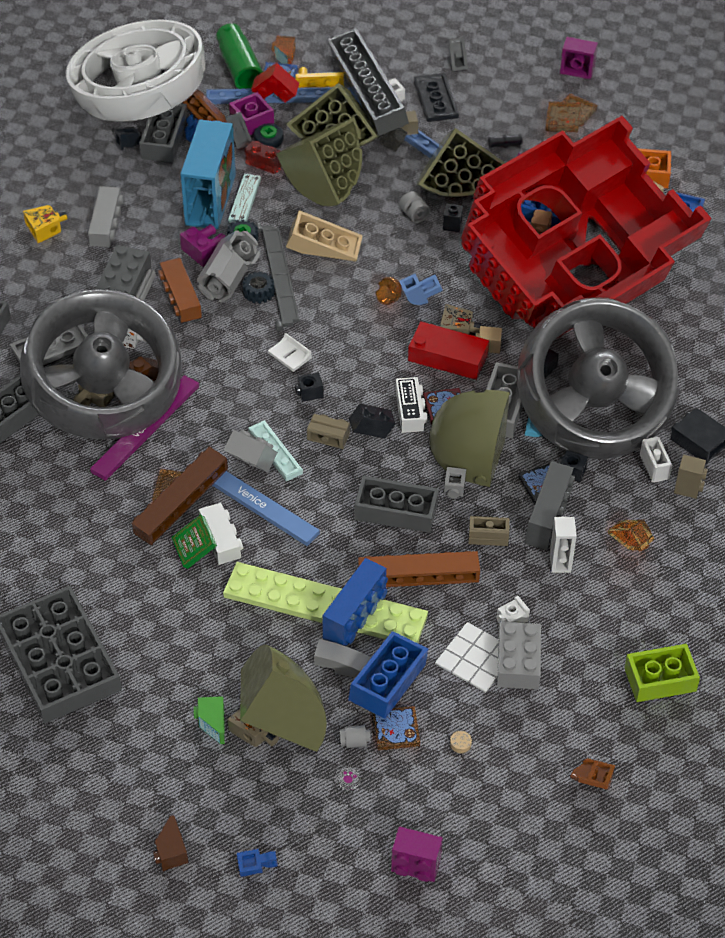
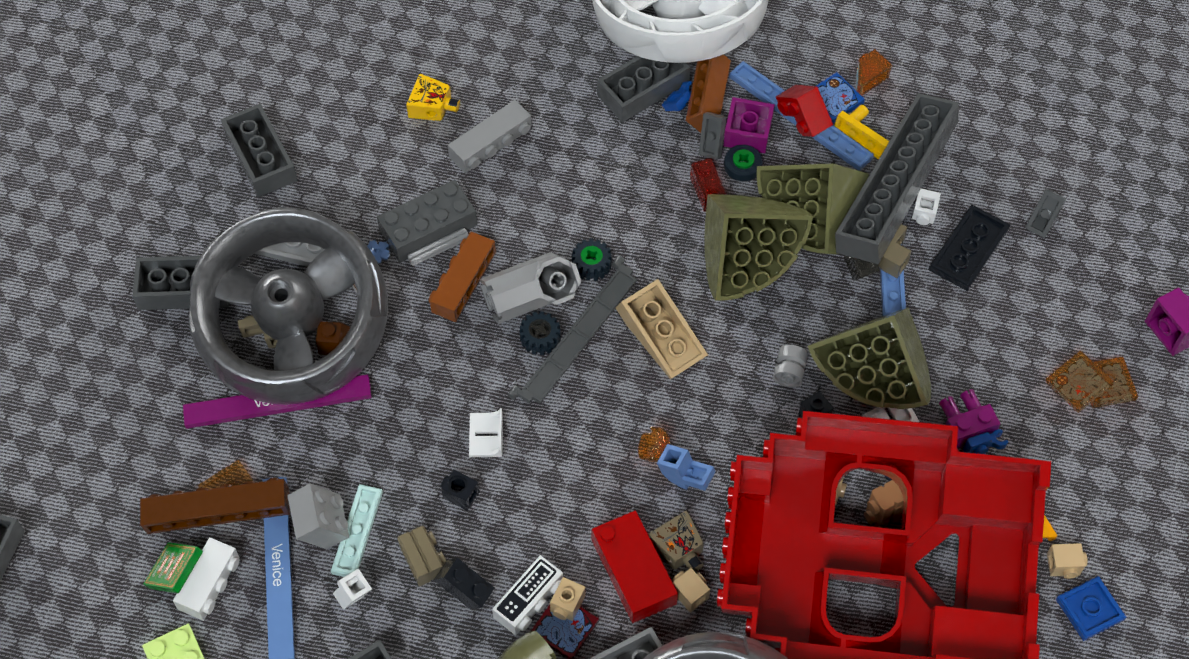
camera: 45 degrees right, 10 degrees up
(127, 137) = (605, 60): black brick -> none
(197, 244) = (534, 237): magenta brick -> none
(208, 174) = (613, 166): dark azure brick -> none
(238, 55) = (809, 45): green piece -> none
(244, 198) = (641, 219): light aqua tile -> none
(312, 471) = (351, 589): none -> white brick
(435, 387) = (567, 599): none -> tan brick
(505, 141) = (980, 361): black pin -> none
(660, 166) = (1103, 530): orange brick -> none

